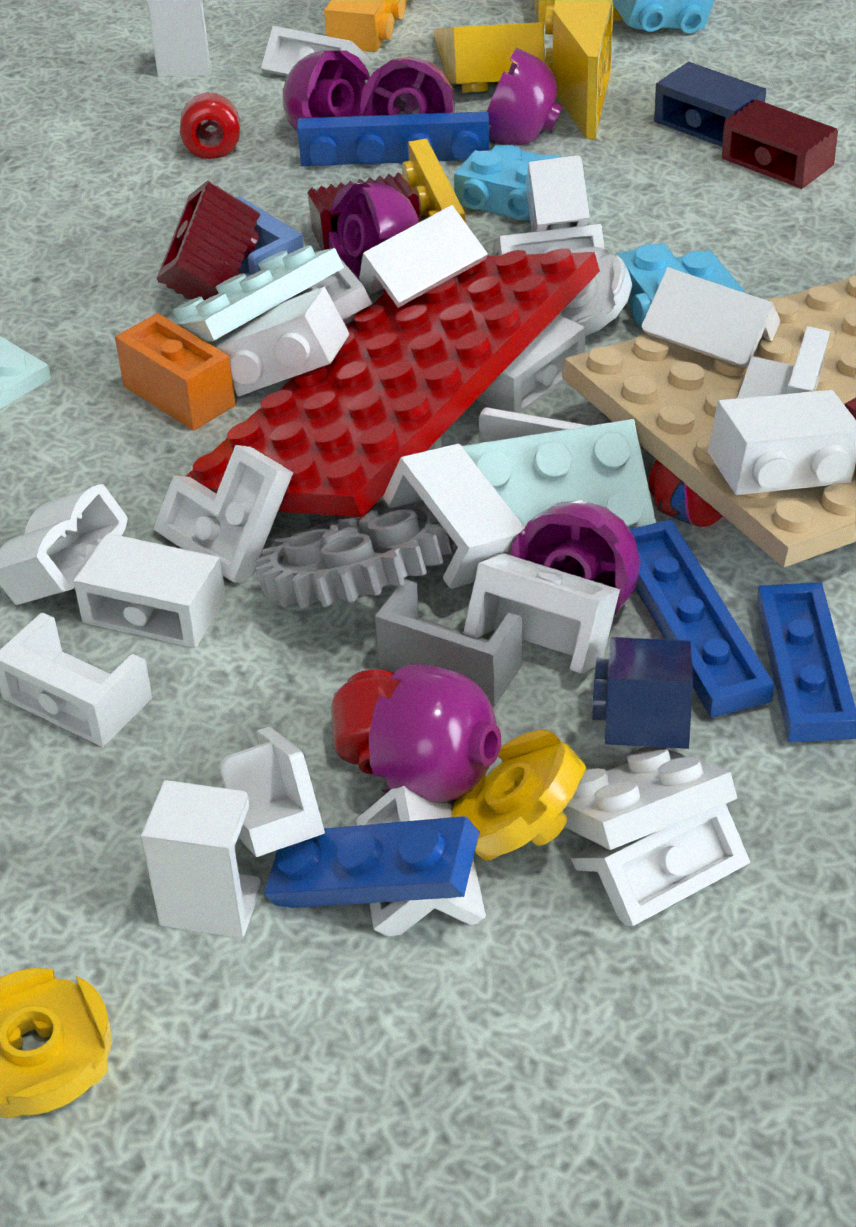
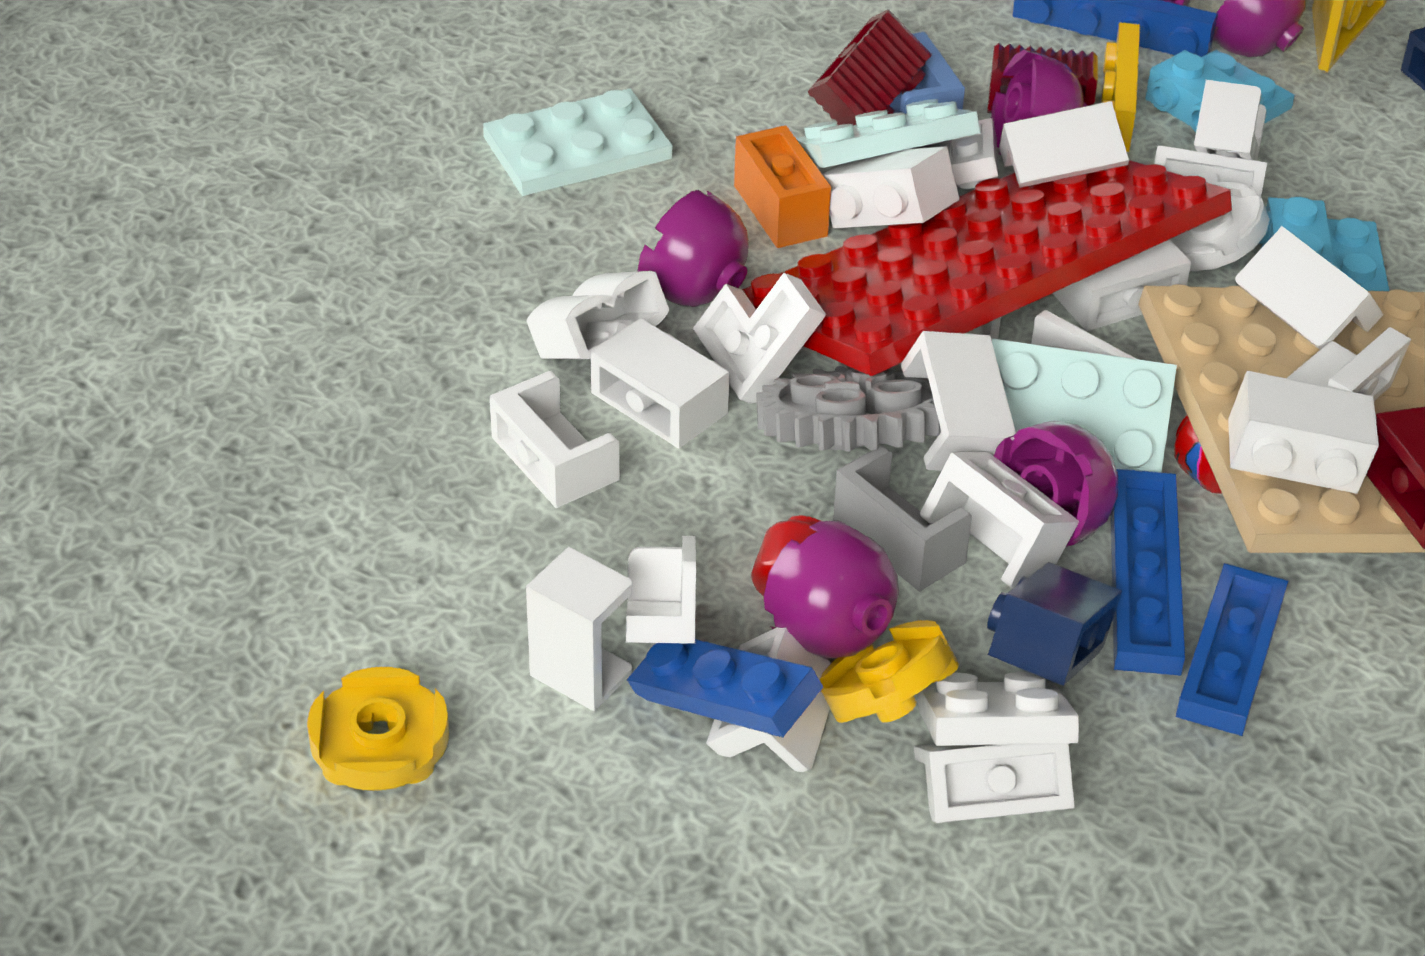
camera: 20 degrees right, 0 degrees up
(132, 452) = (699, 250): none -> magenta cylinder

